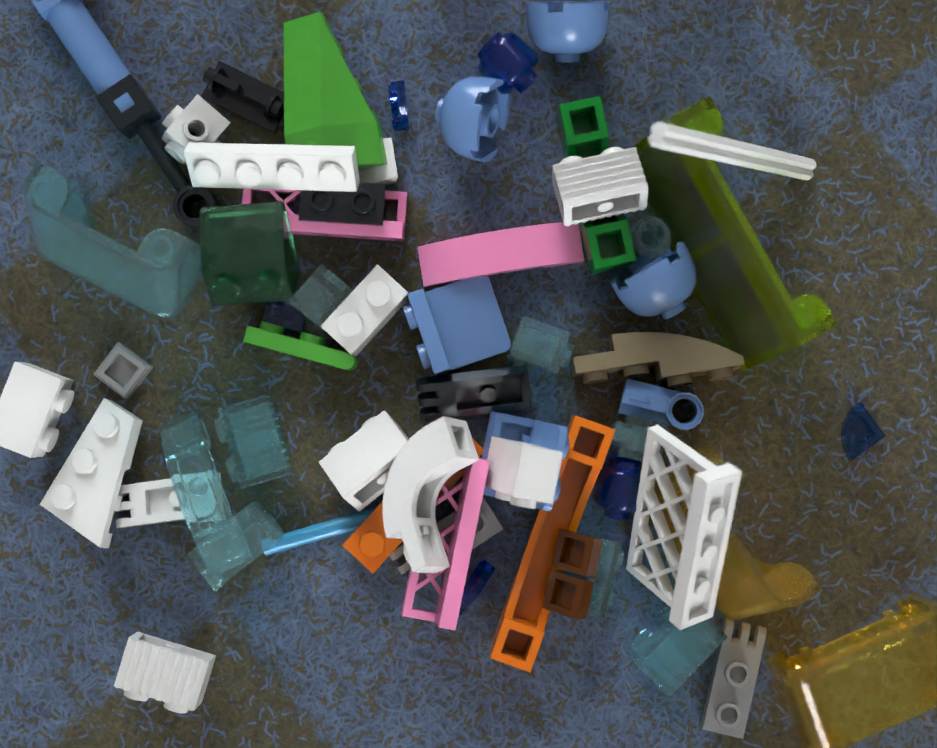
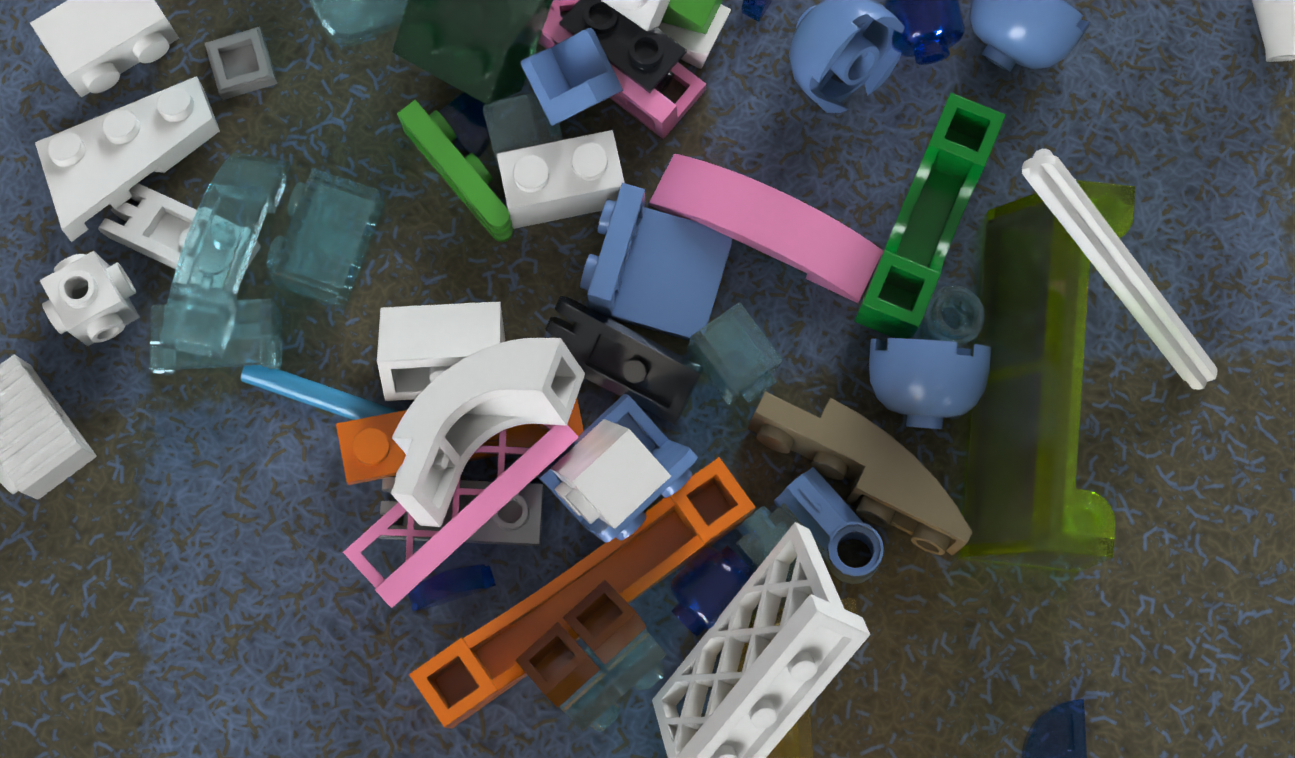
camera: 35 degrees right, 10 degrees down
(158, 569) = (89, 298): none -> white brick
(330, 249) = (571, 76): none -> medium blue panel
(599, 185) = (934, 214): white brick -> none

